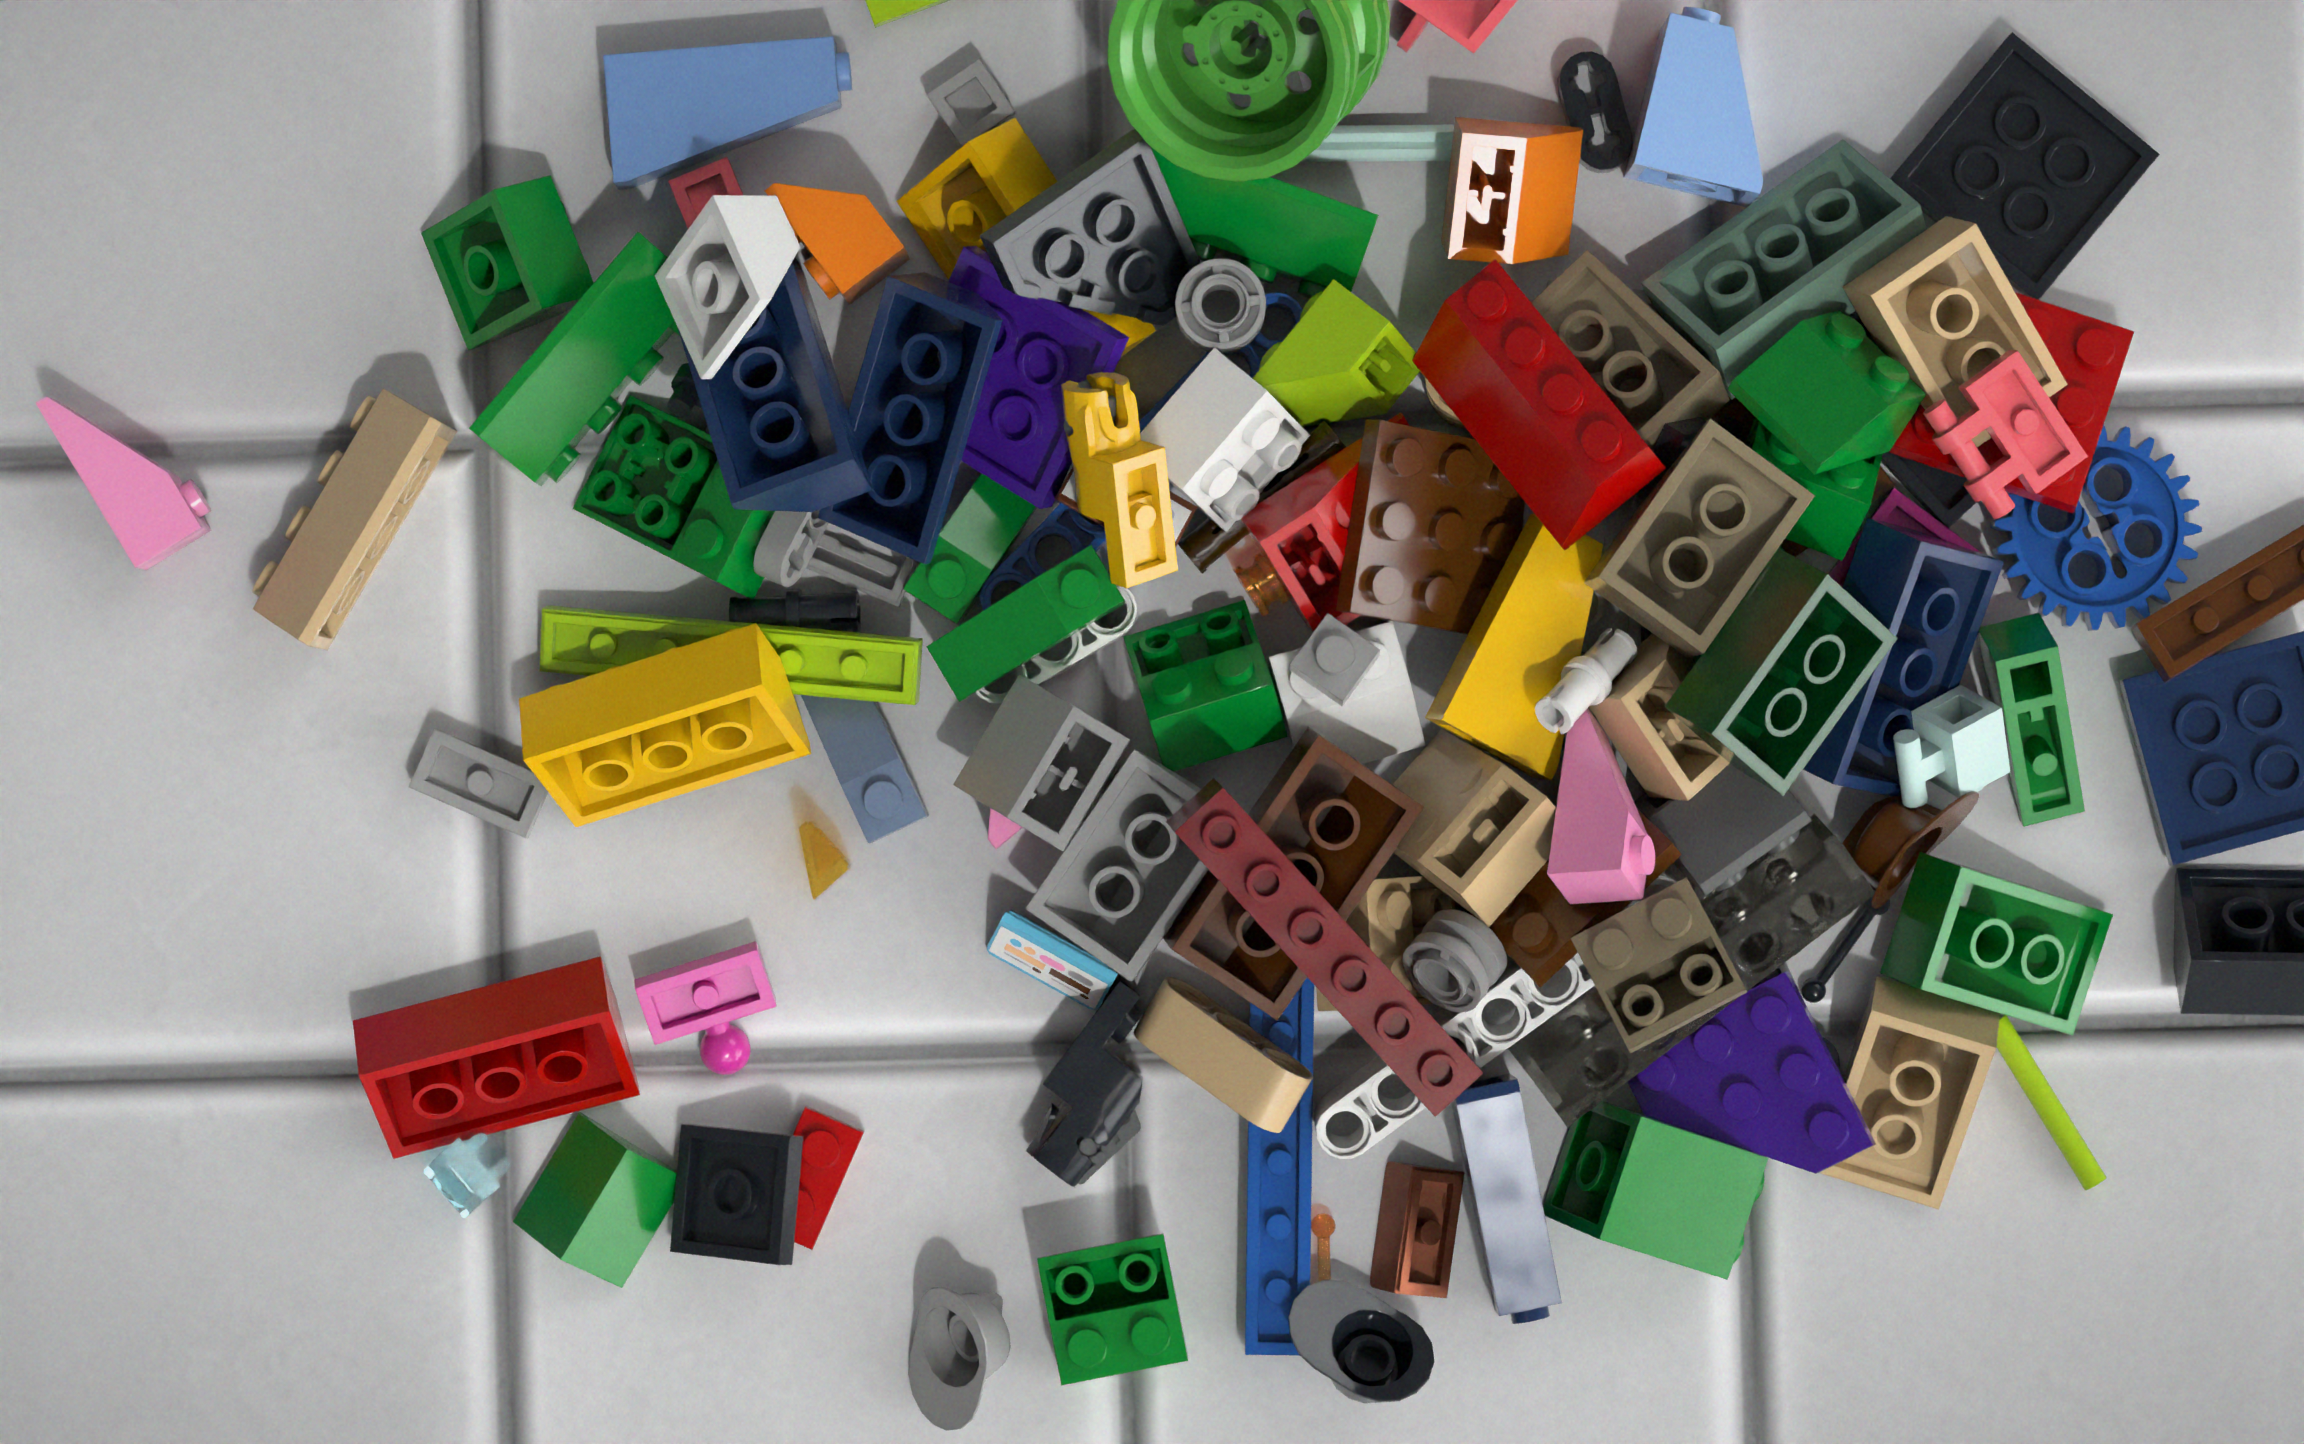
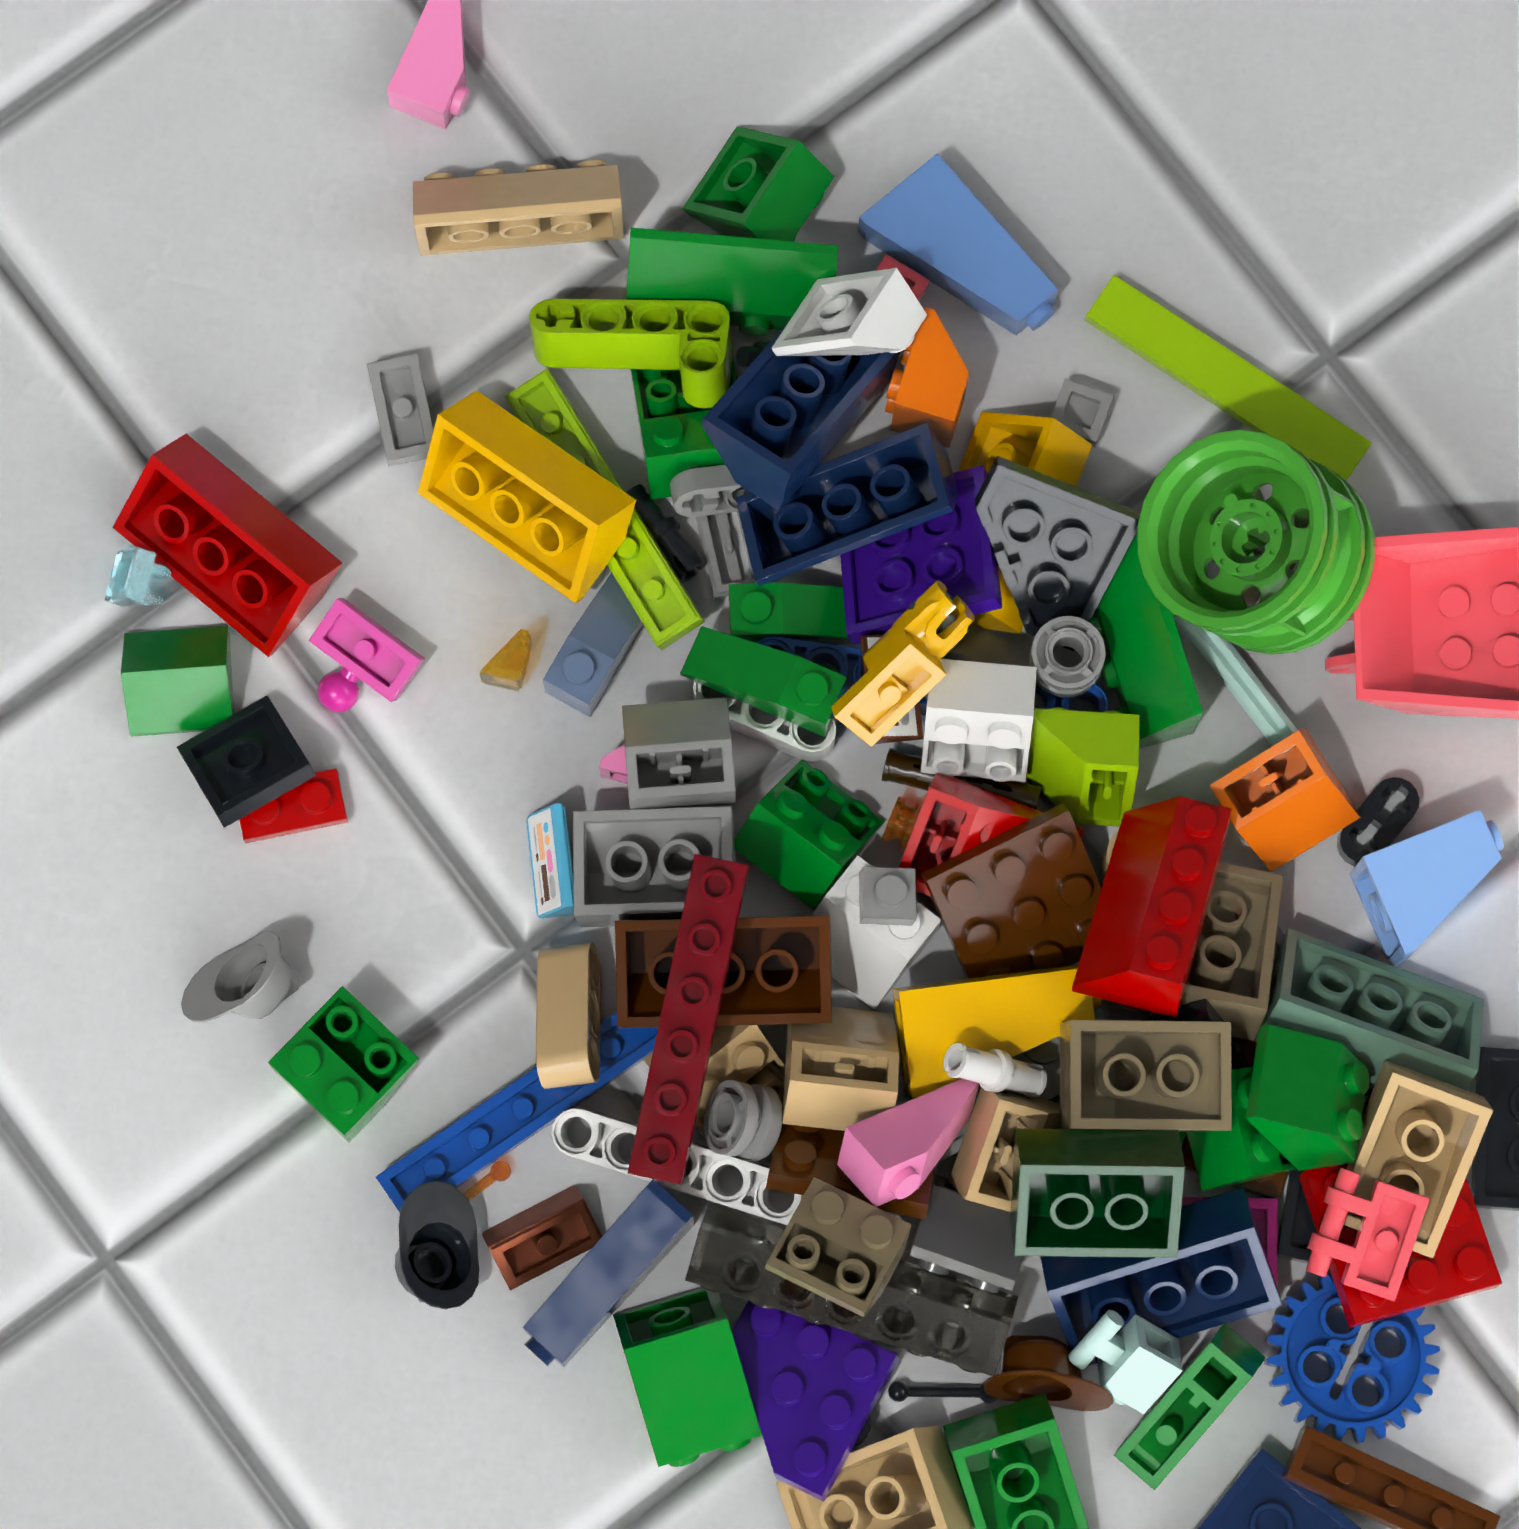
camera: 50 degrees right, 10 degrees down
(526, 561) = (639, 335): none -> lime beam
(1096, 1095) = (484, 951): black plate -> none

